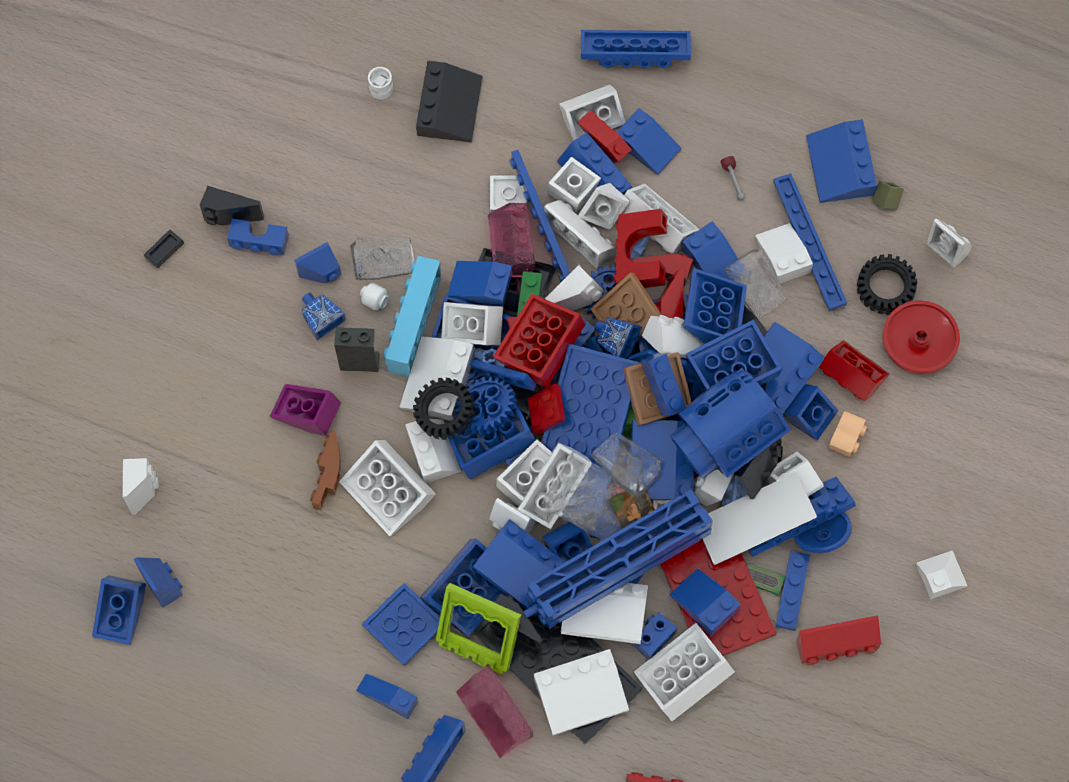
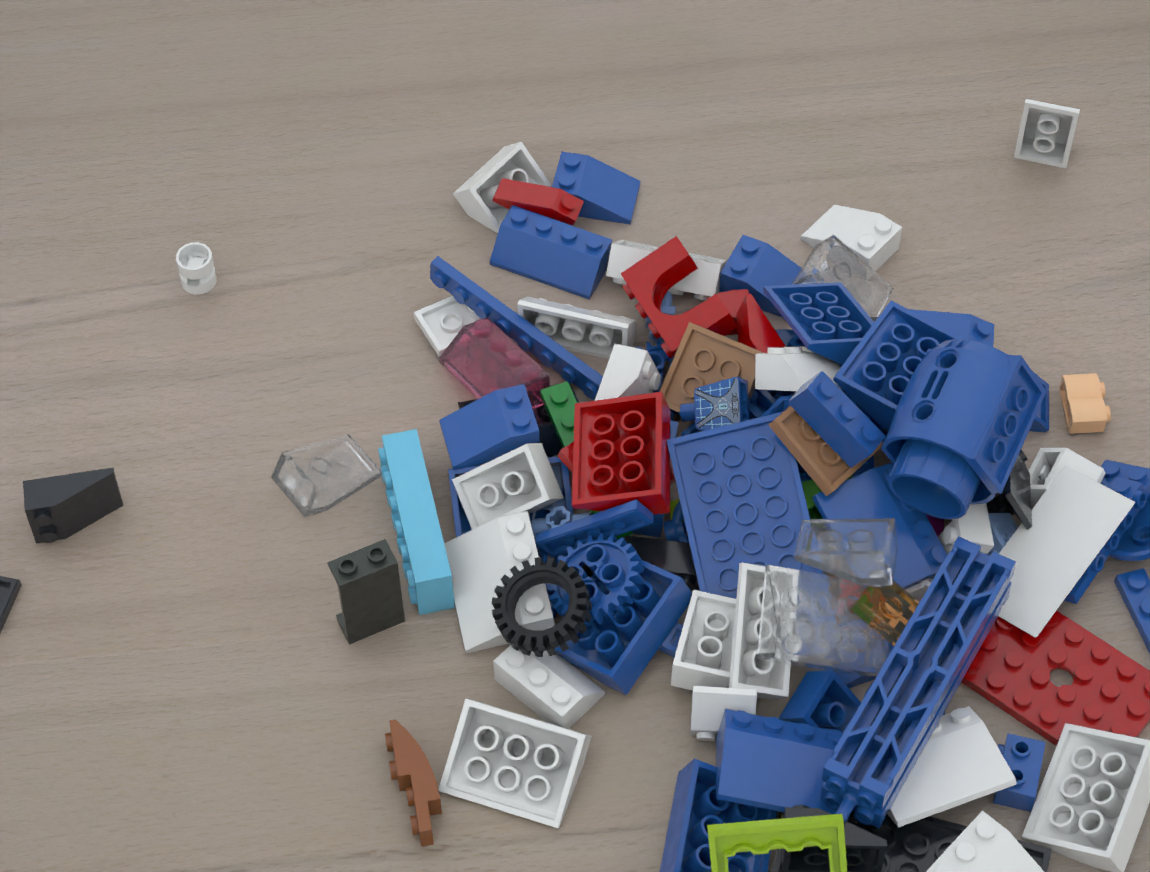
camera: 30 degrees left, 15 degrees down
(273, 241) = (109, 536): blue arch -> none
(306, 408) = (332, 713): magenta slope -> none
(318, 265) = (241, 518): blue slope -> none
(321, 315) = (281, 582): blue torso -> none
(374, 296) = (344, 524): white head -> none
(448, 102) = (302, 255): black slope -> none
(546, 409) = (683, 542): red plate -> none
(573, 184) = (533, 271): white slope -> none
(604, 206) = (593, 279): white slope -> none
(635, 47) = (510, 95): blue plate -> none
(705, 601) = (1059, 687): blue slope -> none
(729, 164) = (714, 172): hinge -> none
(766, 579) = (1112, 628): tile -> none
(806, 232) = (847, 193): blue plate -> none
(842, 162) = (852, 110): blue slope -> none
(853, 370) = (1037, 330): red slope -> none
(888, 195) = (932, 122): olive panel -> none
(894, 265) = (1007, 193): black tyre -> none
(921, 337) = (1091, 252): red dish -> none

